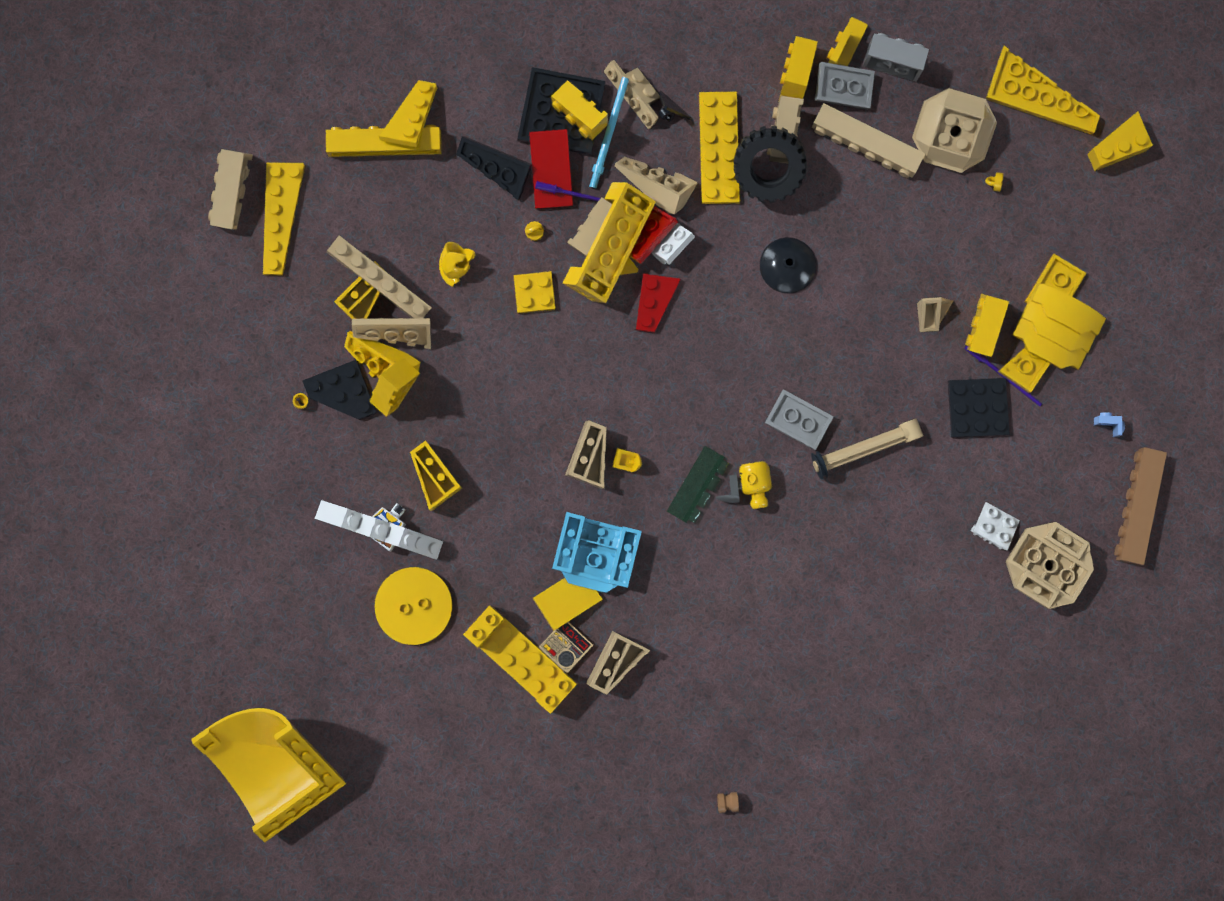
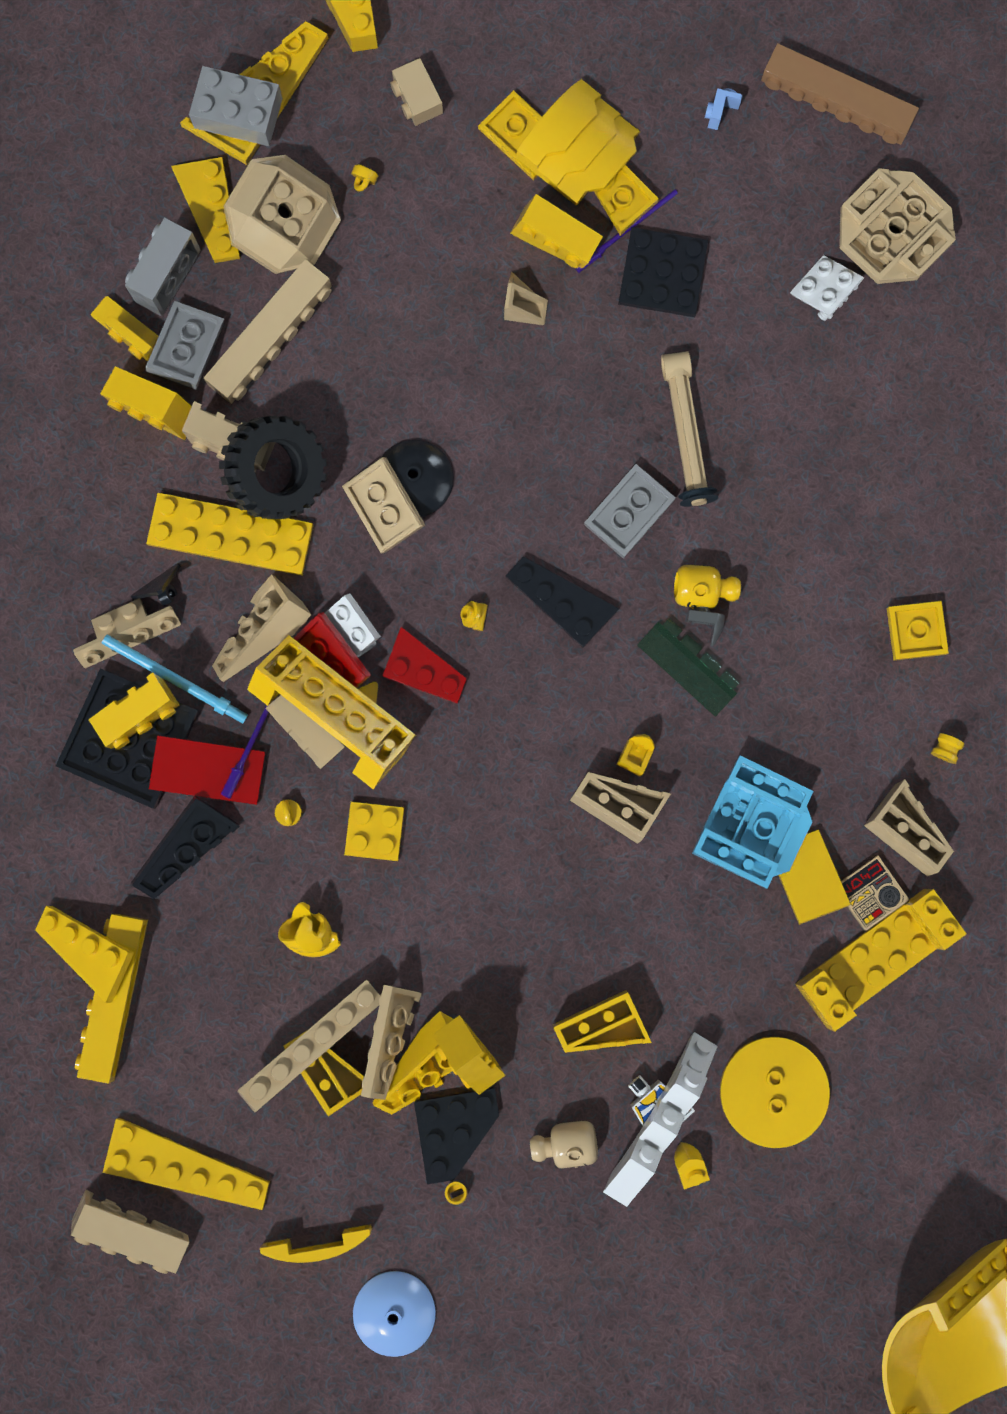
camera: 75 degrees left, 0 degrees up
(224, 380) = (394, 1294): none -> light blue dish
(239, 294) = (283, 1251): none -> yellow slope
(348, 469) = (569, 1145): none -> tan piece
(350, 557) = (690, 1165): none -> yellow plate
(679, 679) = (947, 748): none -> yellow wheel
(700, 327) = (474, 615): none -> yellow plate
(722, 390) = (565, 603): none -> black wing
(759, 641) = (917, 630): none -> yellow plate
(763, 247) = (383, 505): none -> tan tile
(958, 75) = (206, 193): none -> yellow wing
(1023, 80) = (235, 106): none -> light grey brick
(1067, 204) = (417, 92): none -> tan brick

